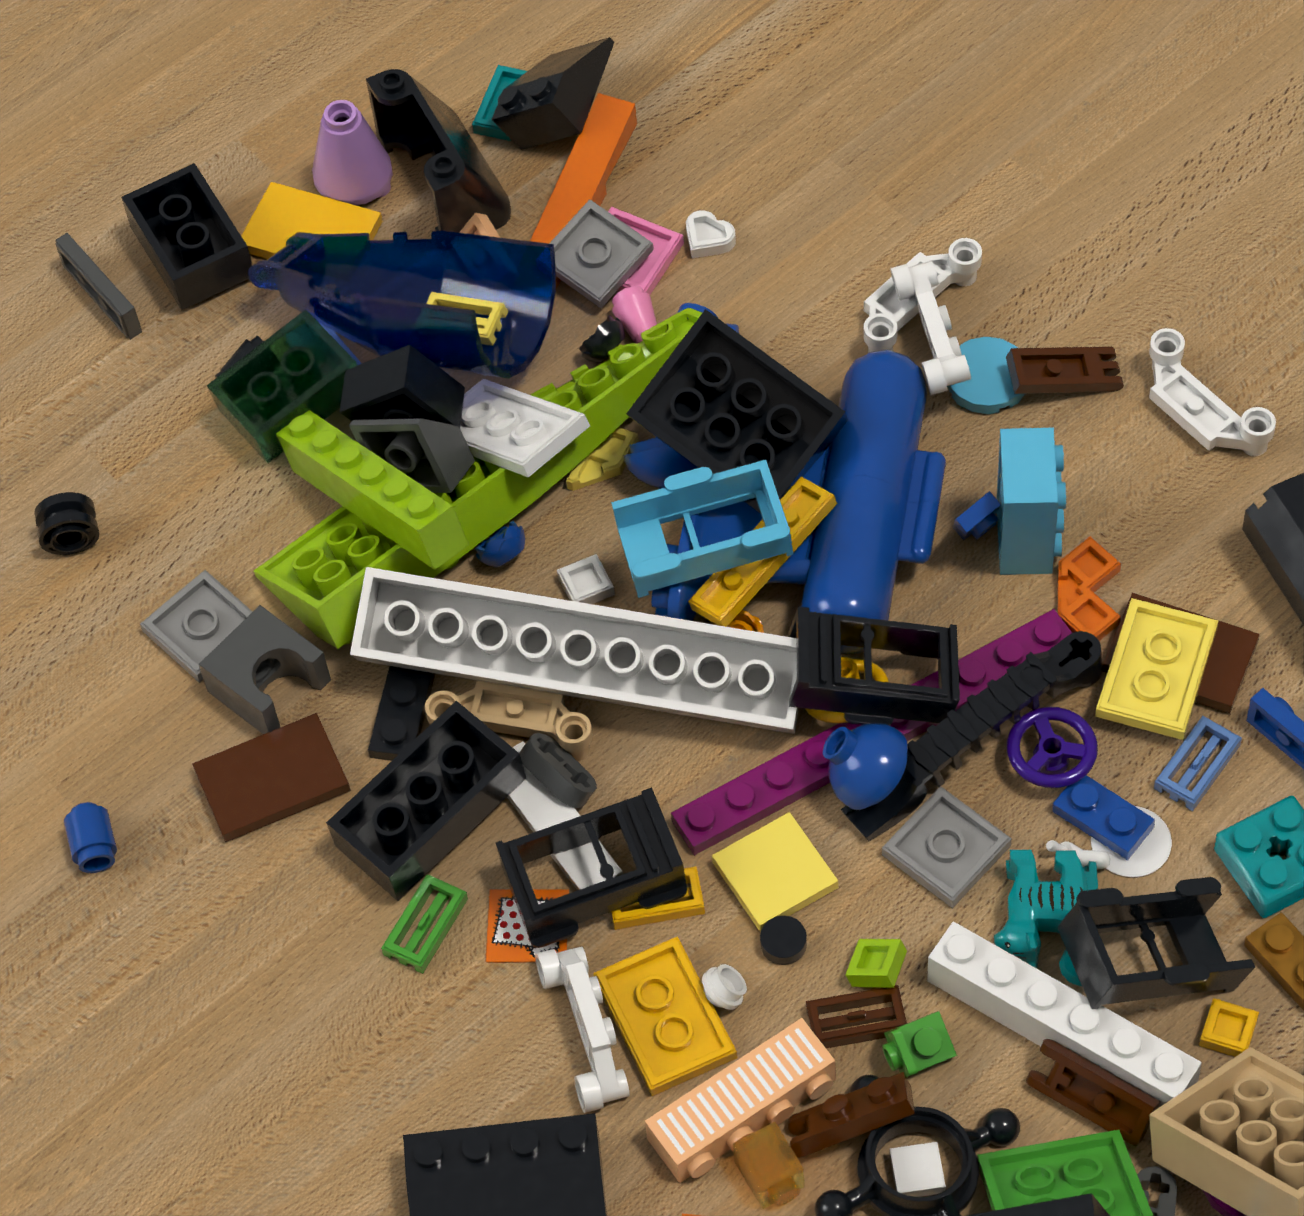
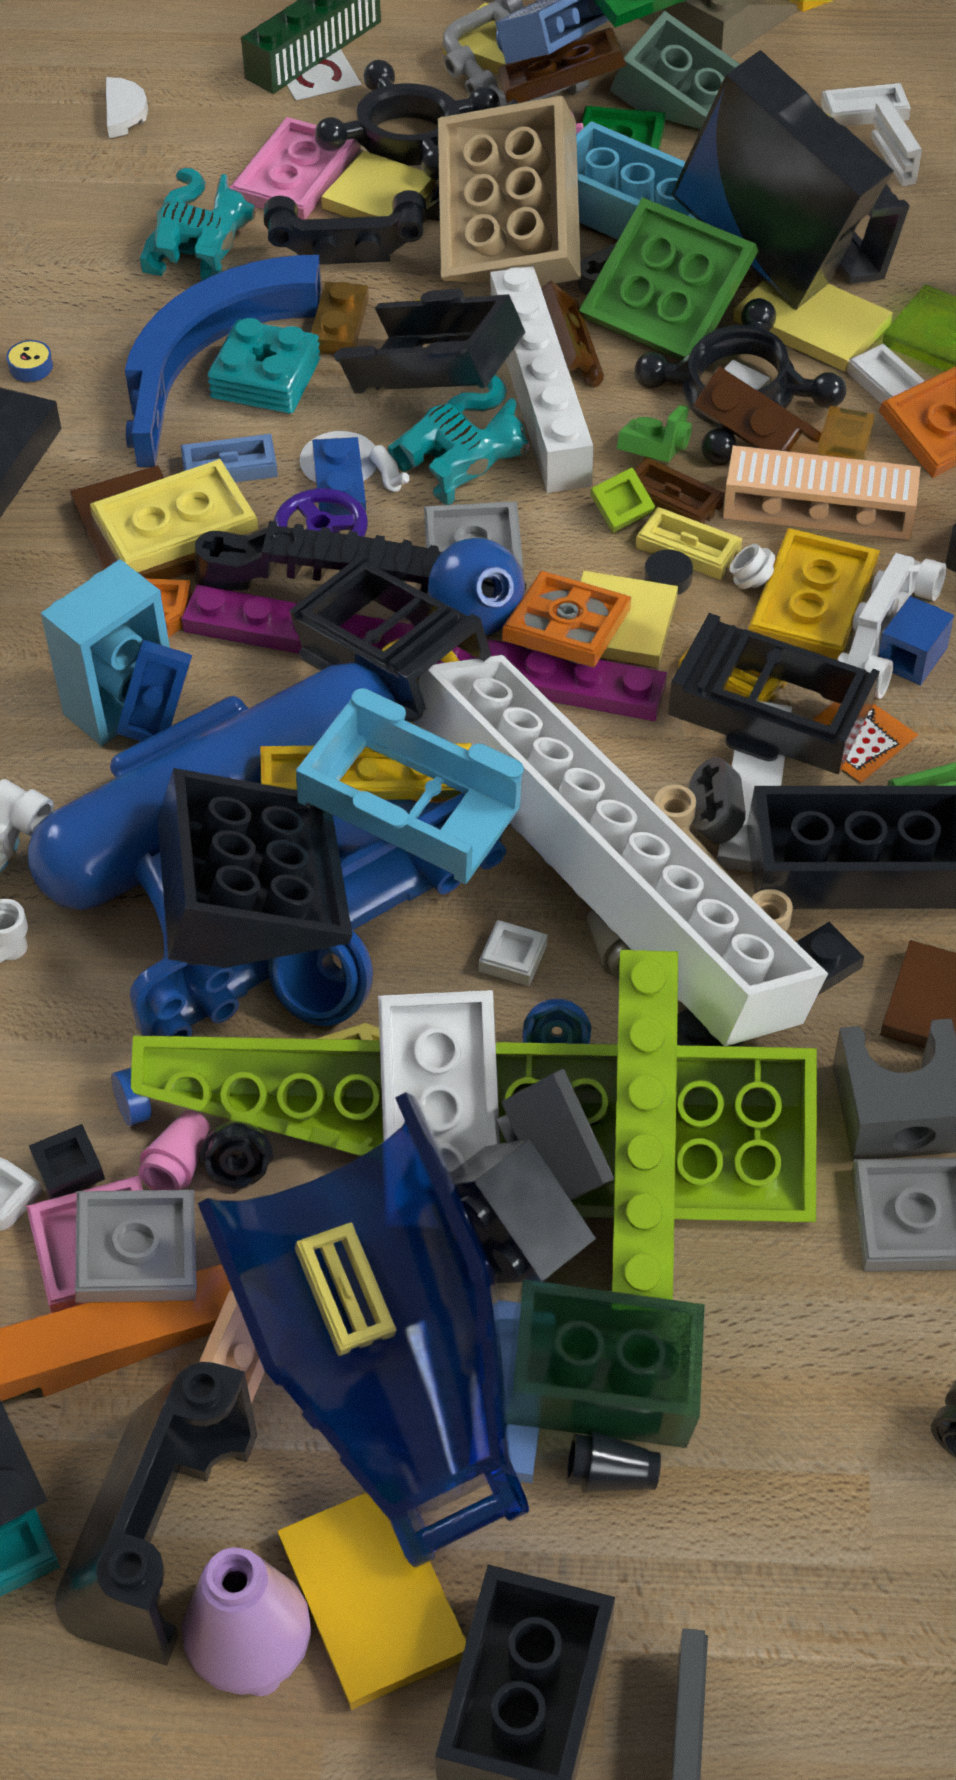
camera: 140 degrees left, 5 degrees down
(547, 1019) = (916, 639): none -> blue brick
(688, 267) = (67, 1162): none -> black plate
(791, 807) = (566, 618): none -> orange piece
(791, 966) = (703, 557): none -> light yellow tile

